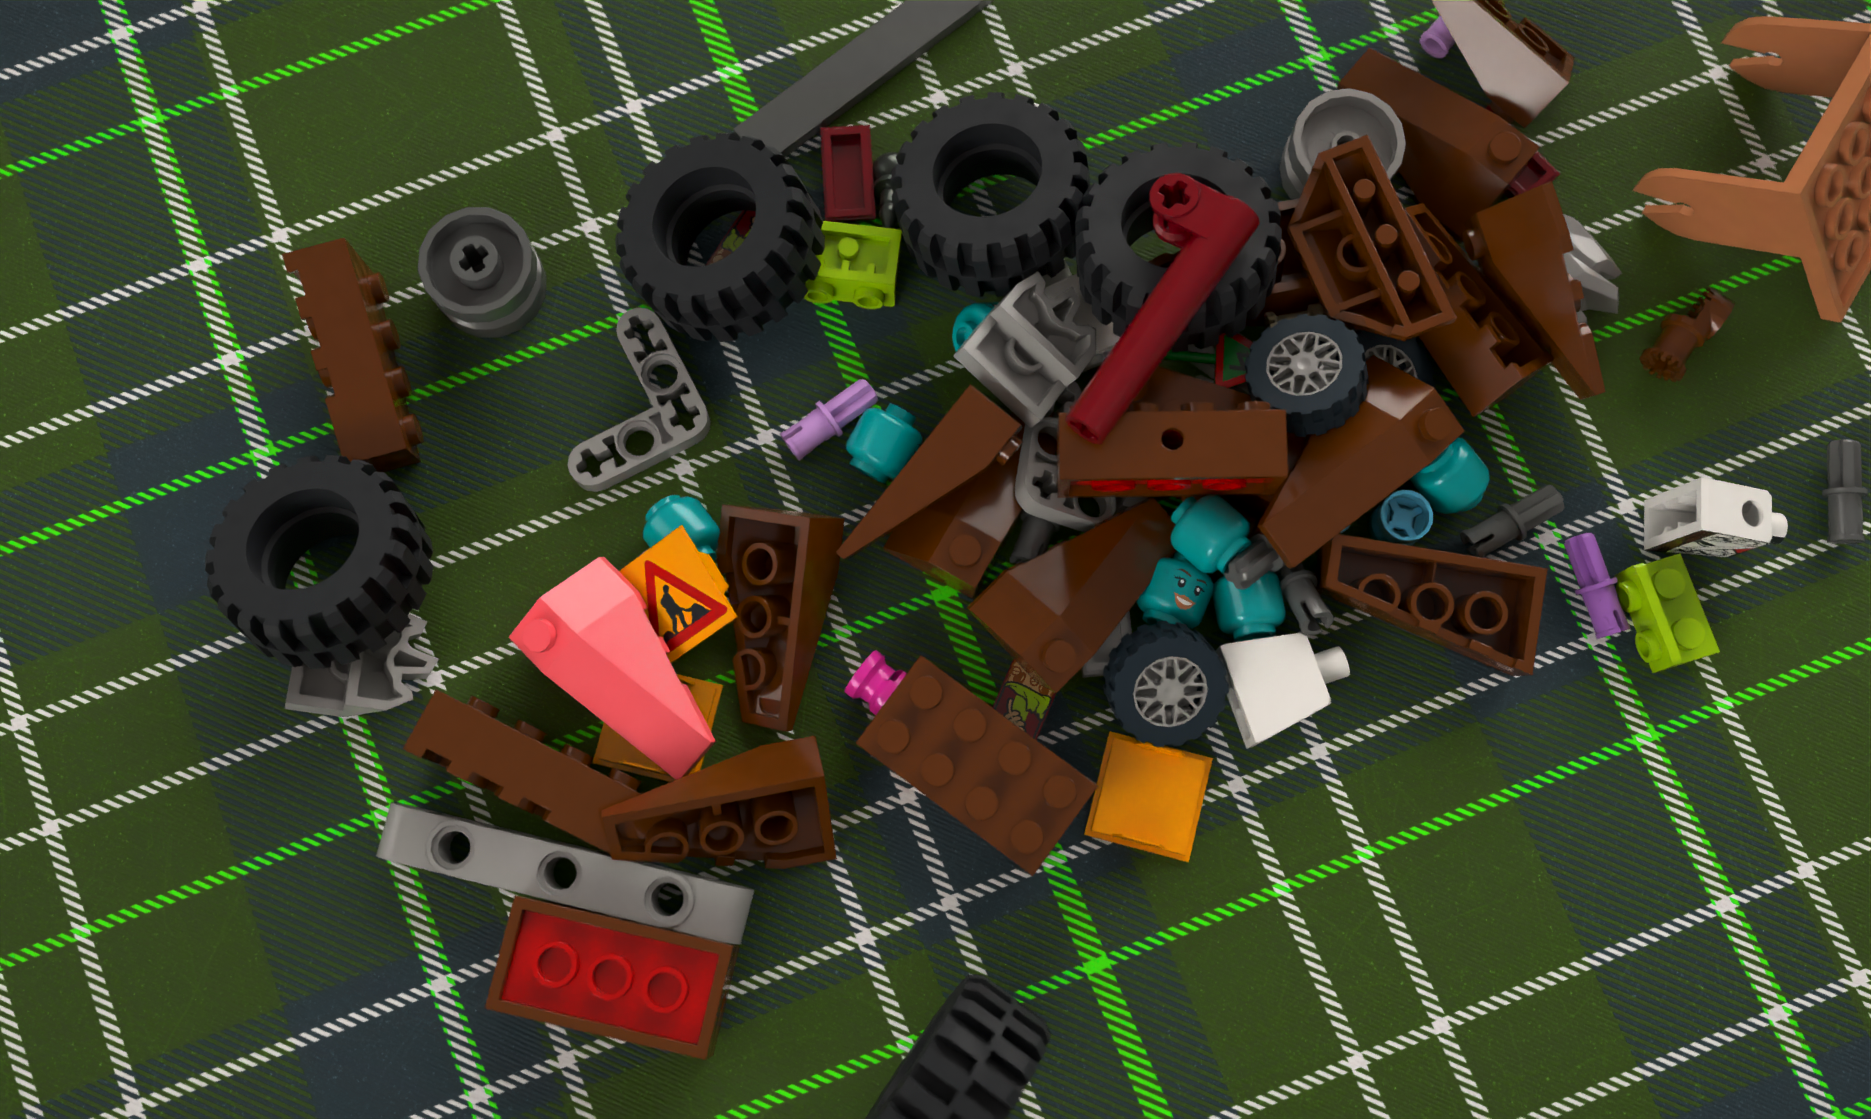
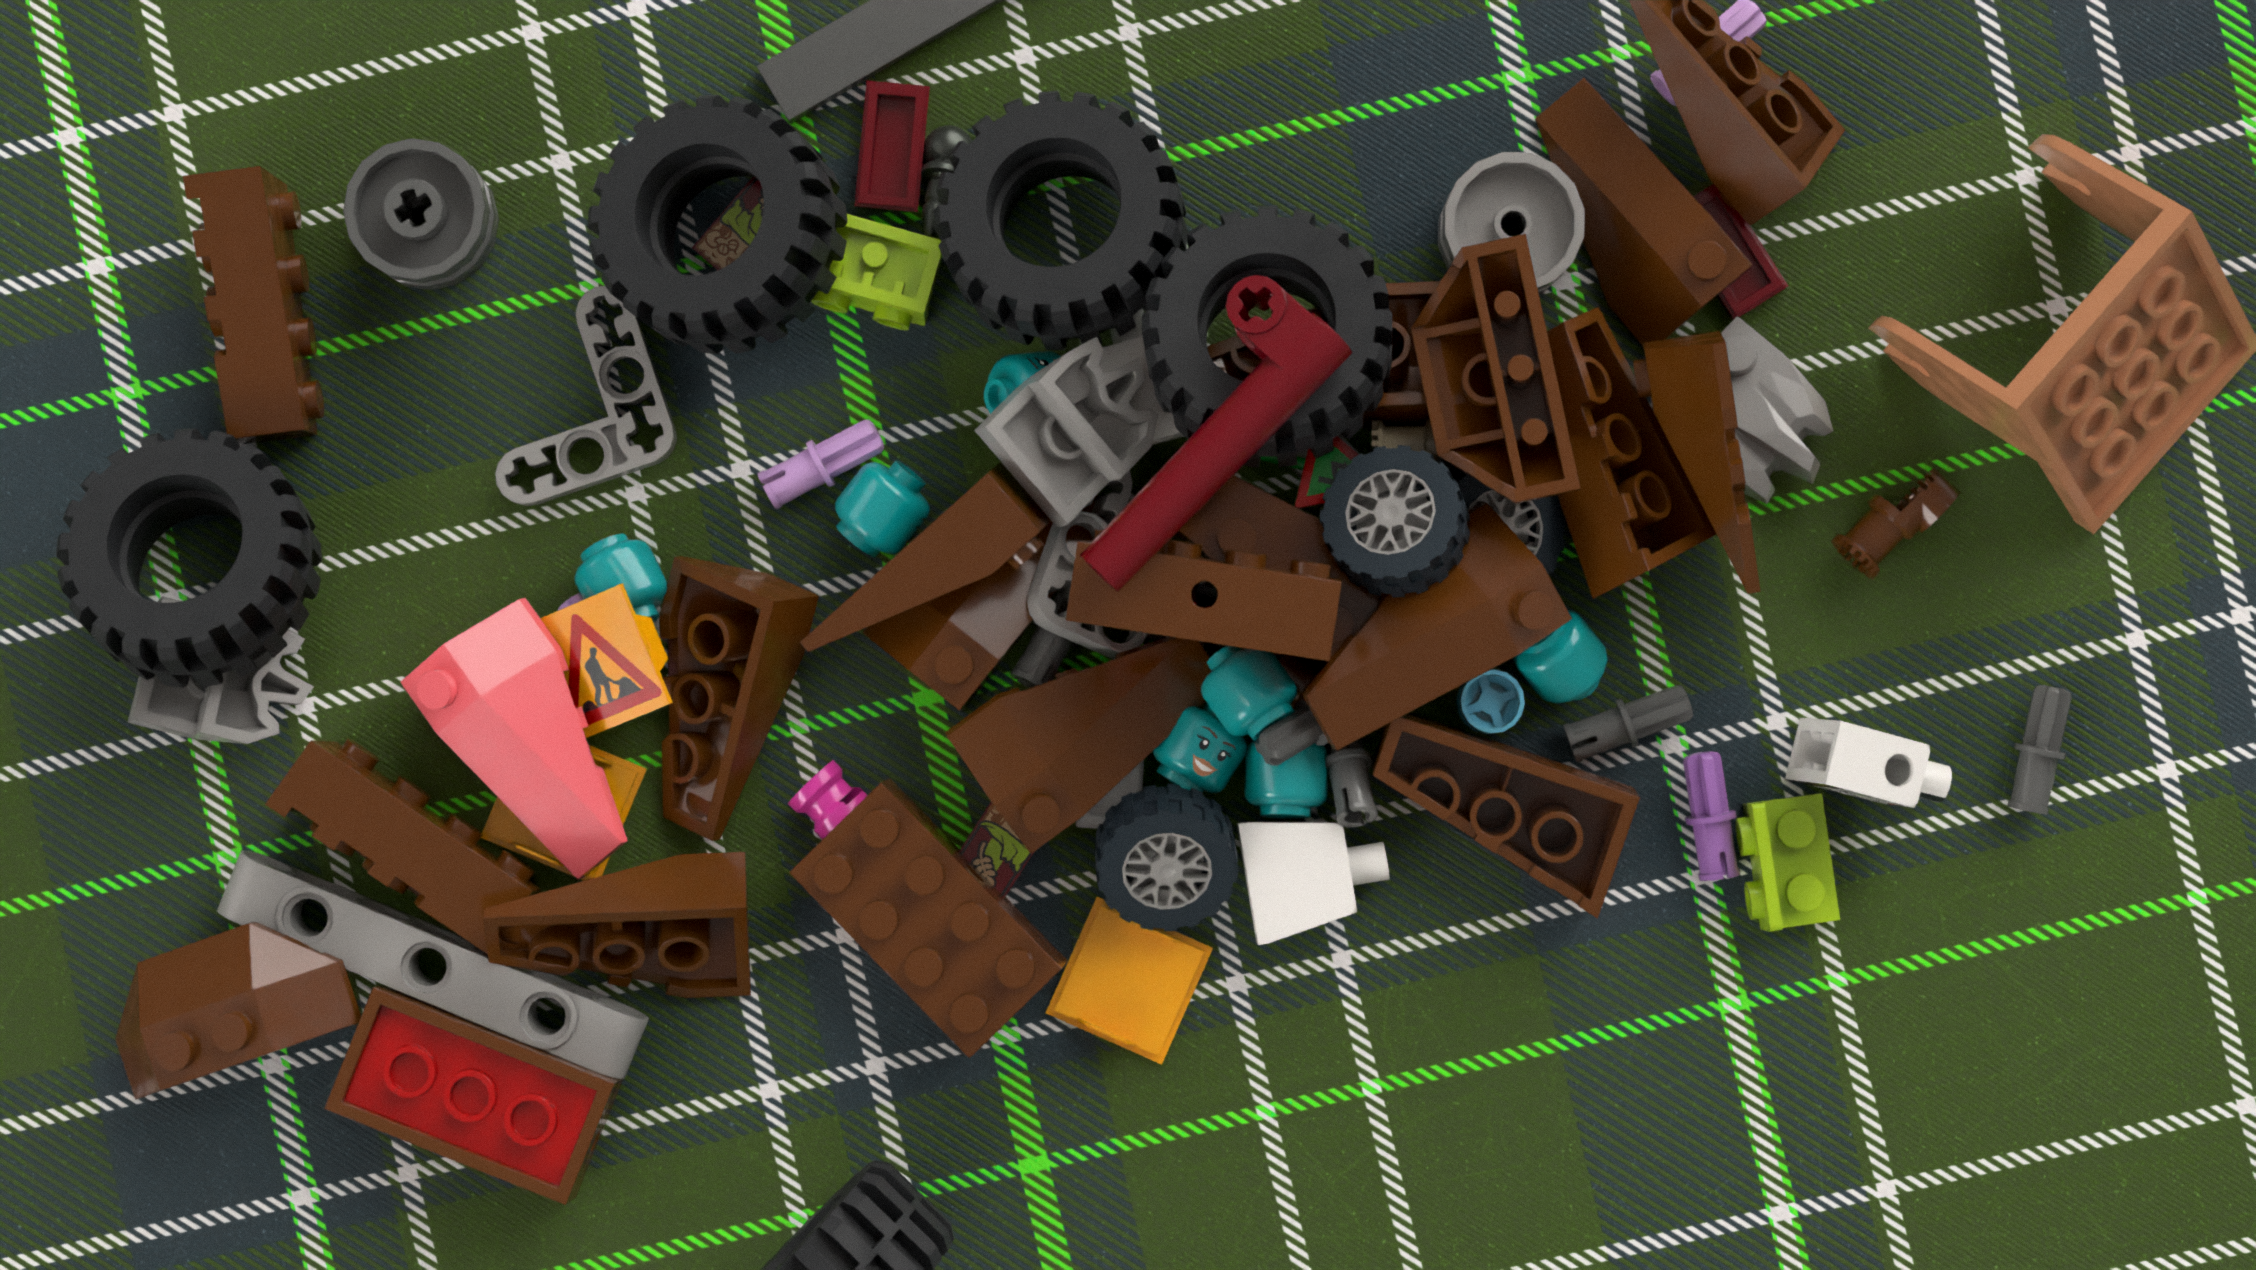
camera: 10 degrees right, 10 degrees up
(393, 934) = (228, 1005): none -> reddish brown wedge

